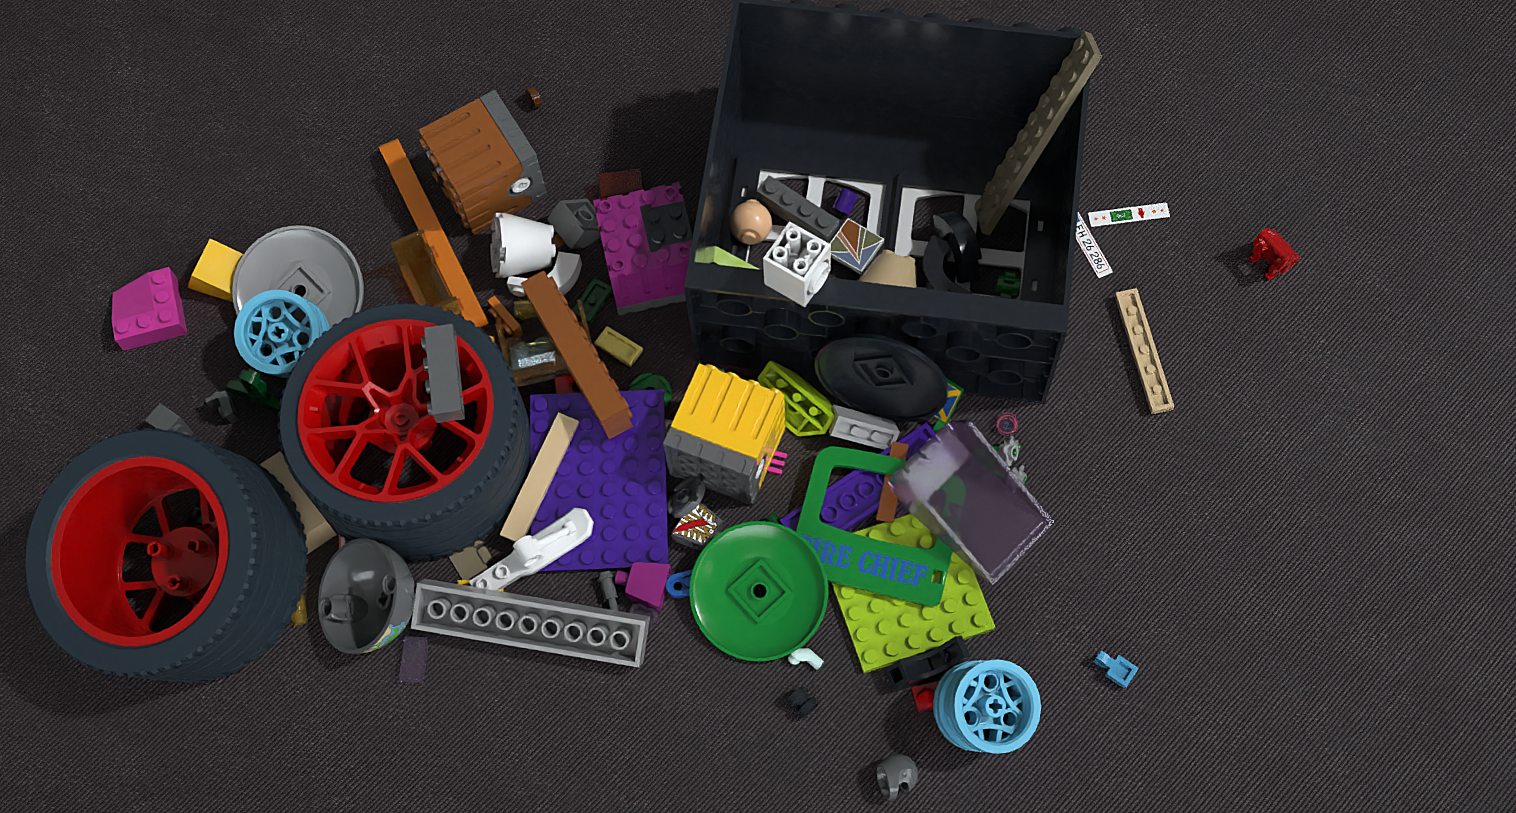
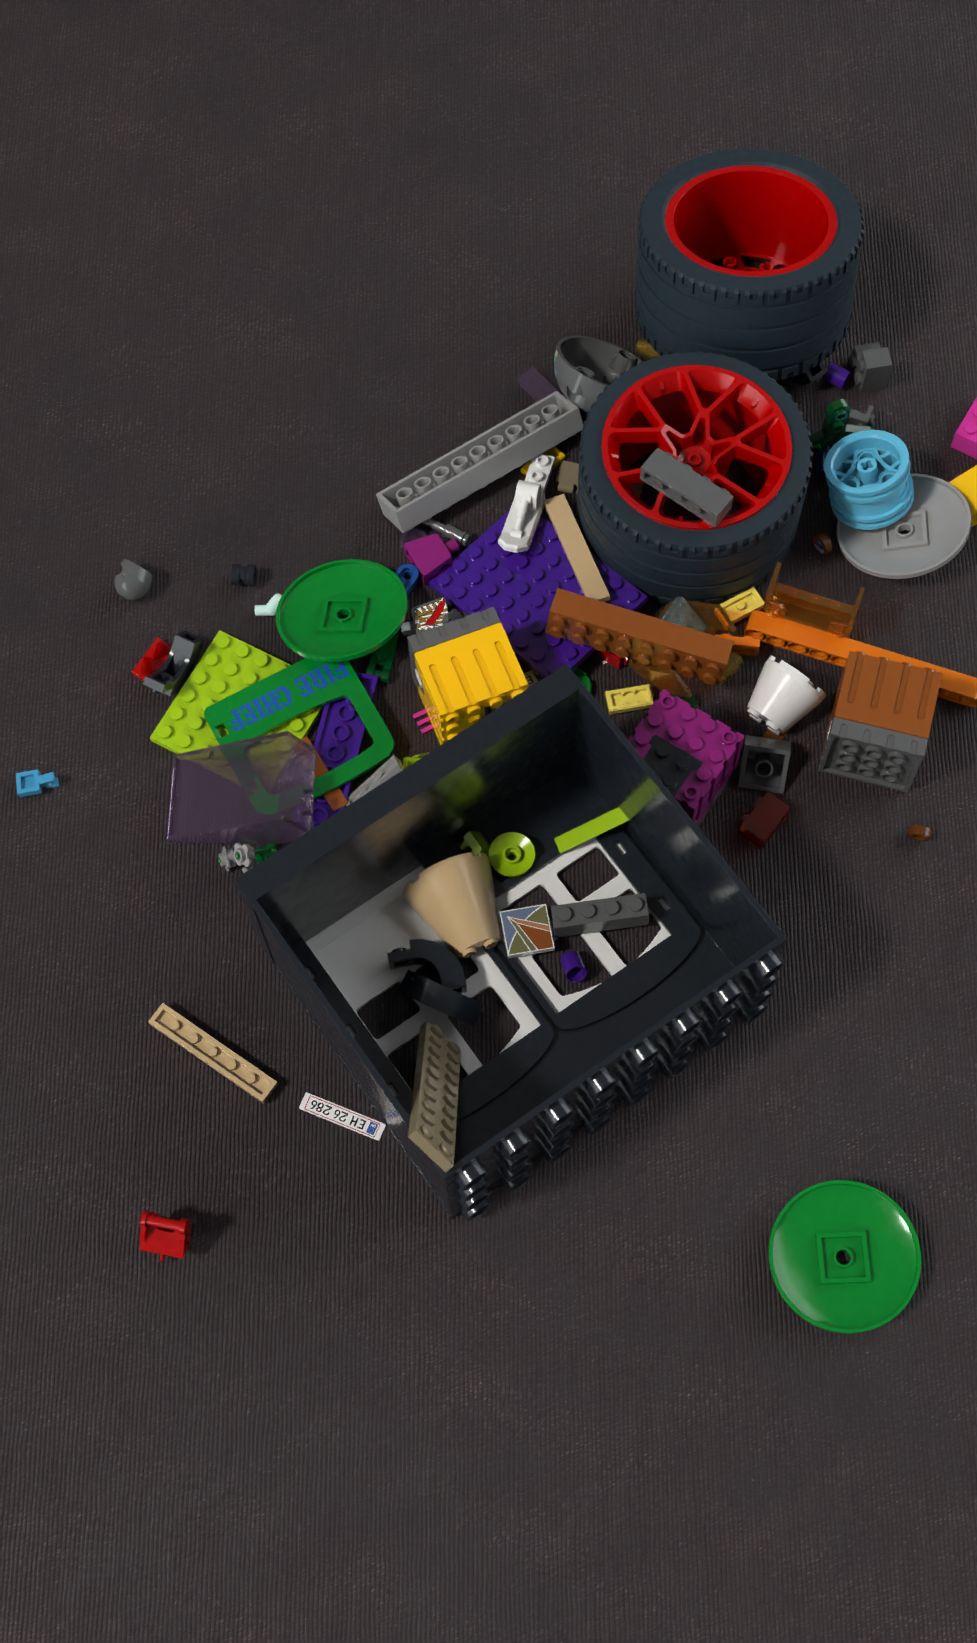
camera: 135 degrees right, 0 degrees up
(564, 273) = (727, 707): white arch -> none
(750, 222) = (626, 870): light nougat brick -> none
(797, 264) = (486, 731): white brick -> none
(1008, 285) = (367, 1000): green gear -> none
(1009, 692) = (101, 658): medium azure wheel -> none
(1128, 214) = (329, 1176): white sticker -> none

